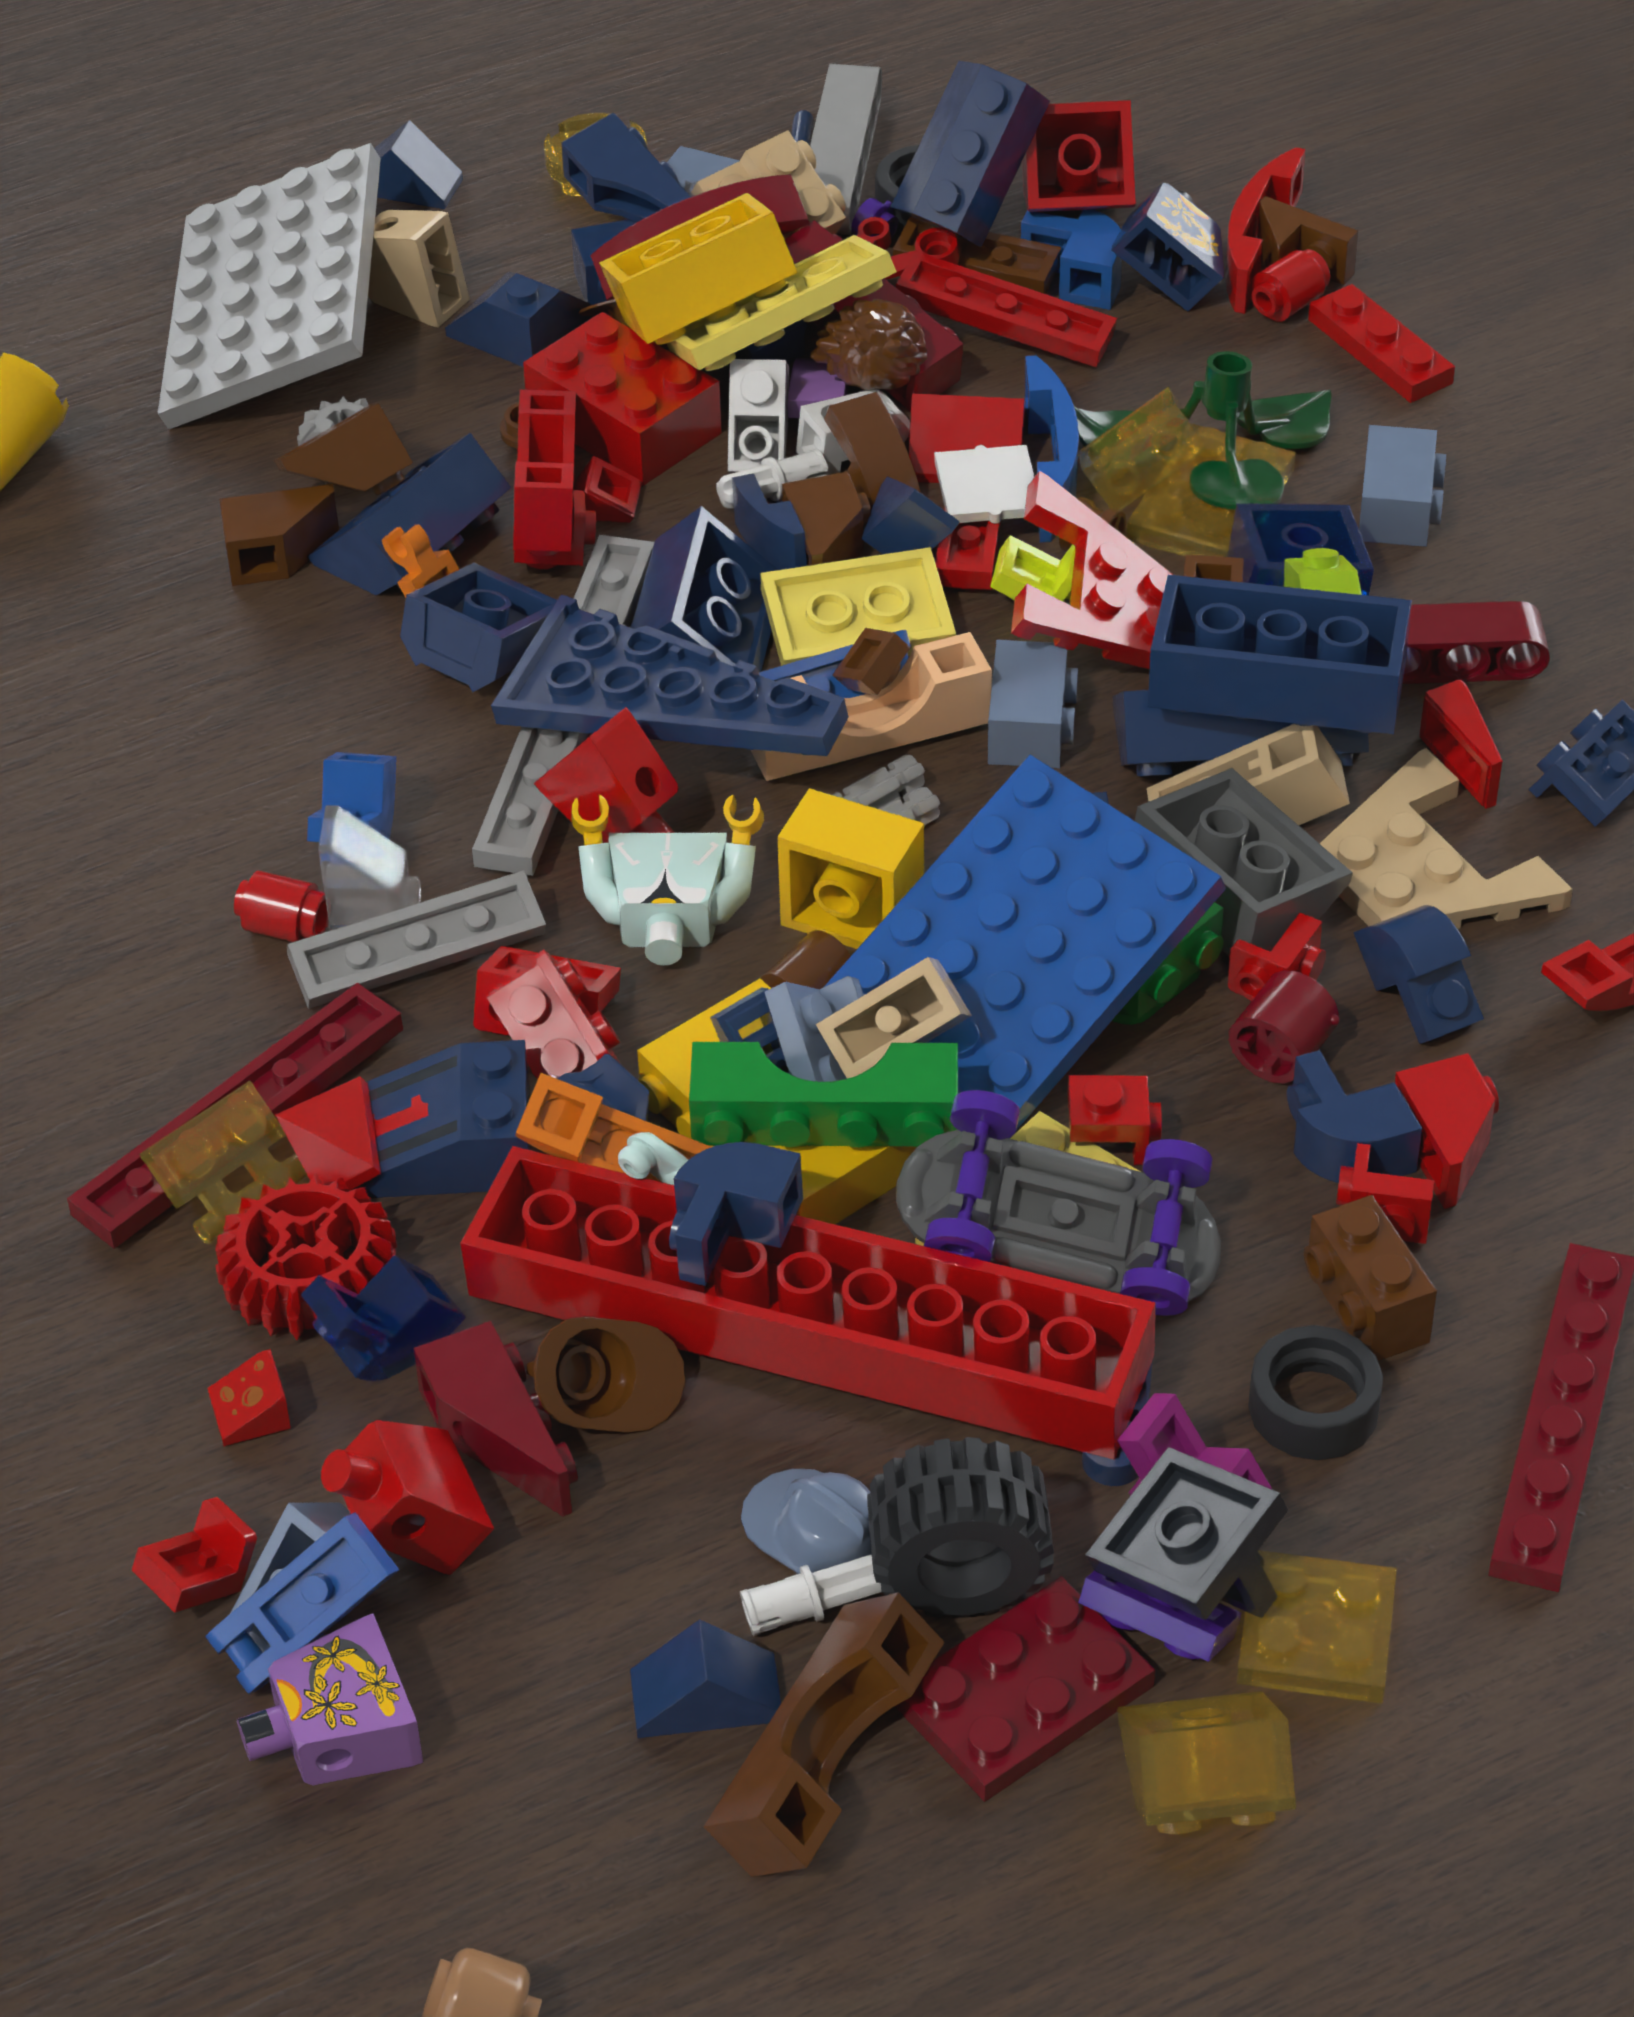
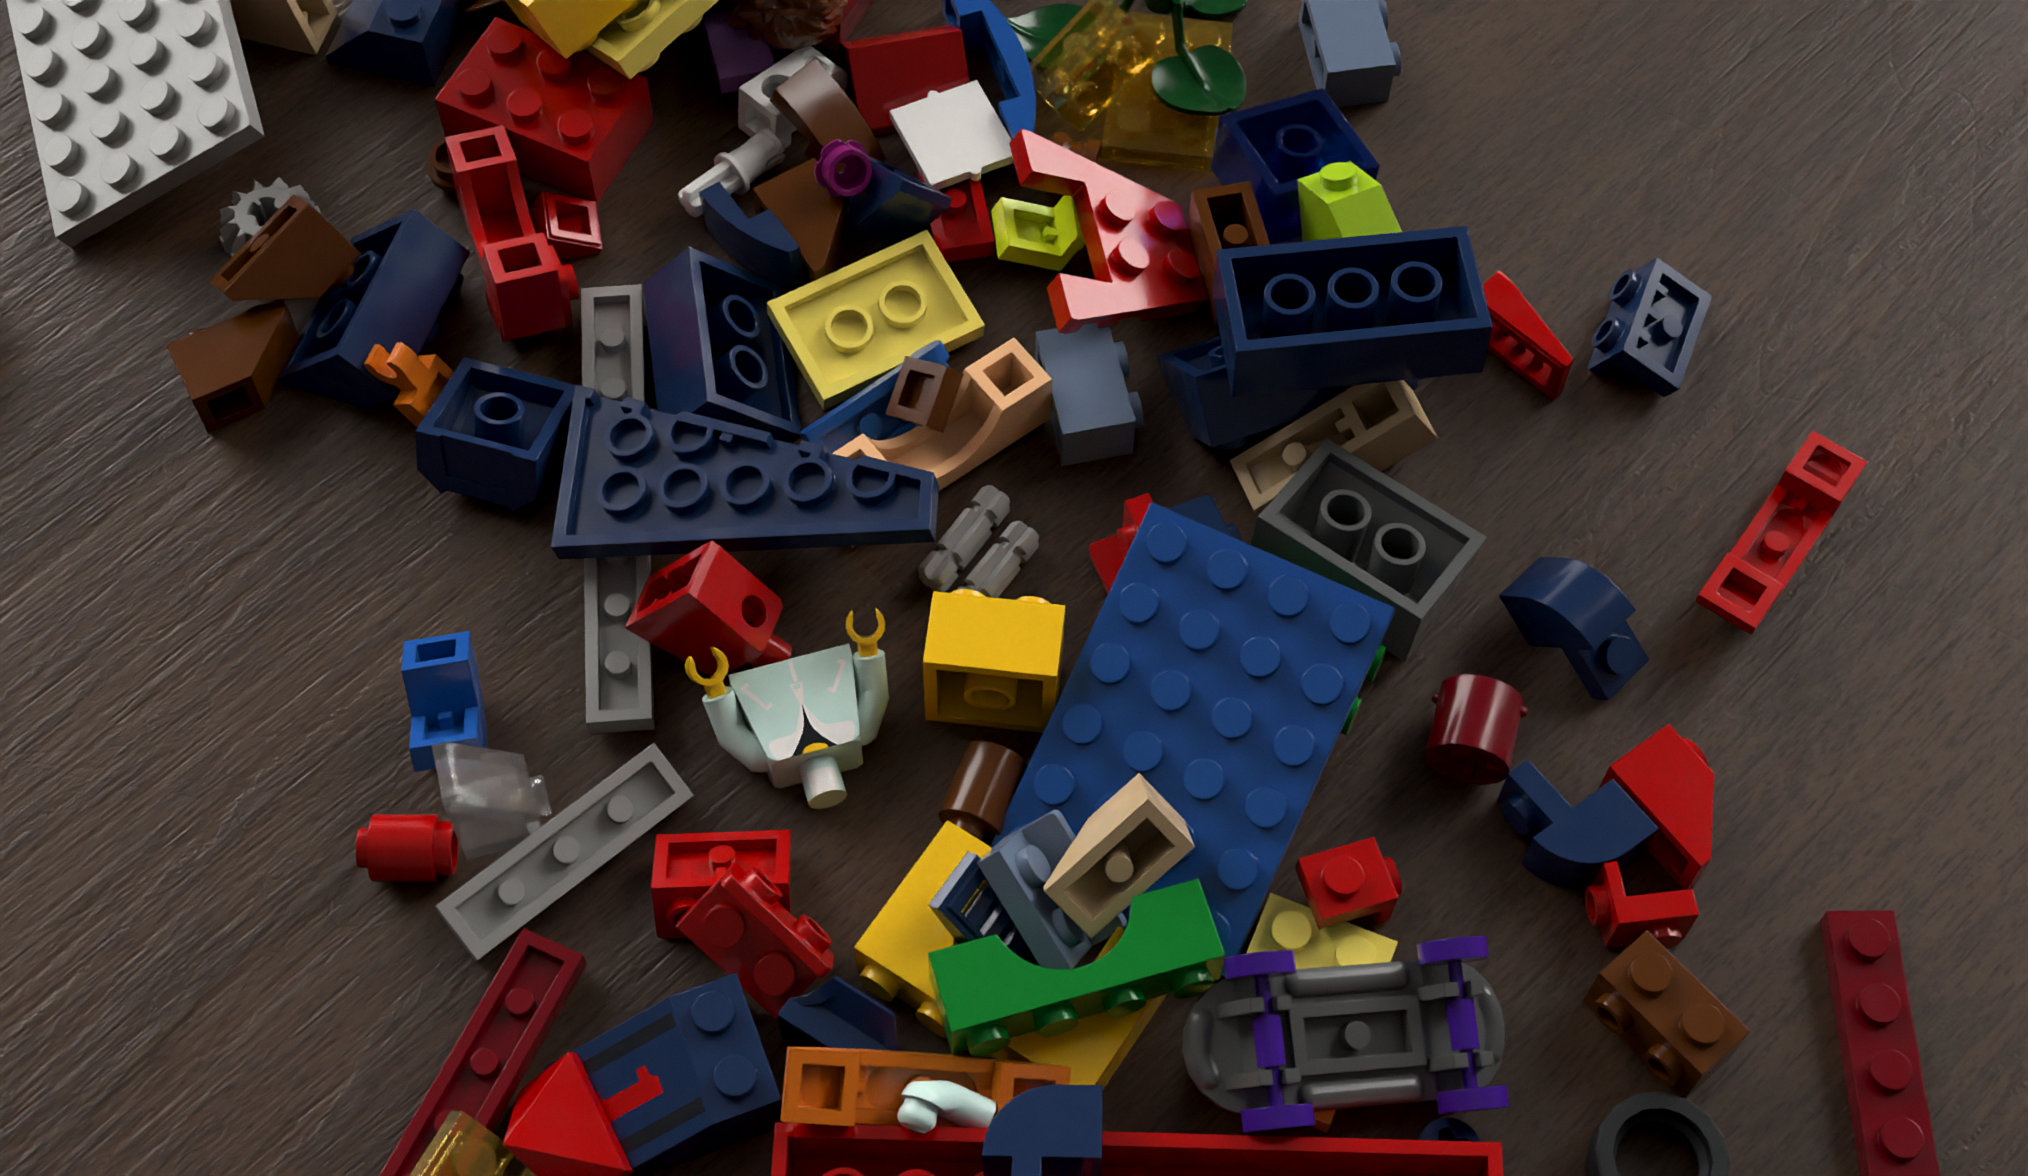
camera: 20 degrees left, 15 degrees up
(757, 412) = (693, 102): white slope -> none
(881, 477) = (855, 173): none -> magenta plate
(1295, 951) = (1456, 642): red bracket -> none
(1408, 864) = (1518, 496): tan wing -> none
(1475, 642) = (1495, 205): dark red beam -> none

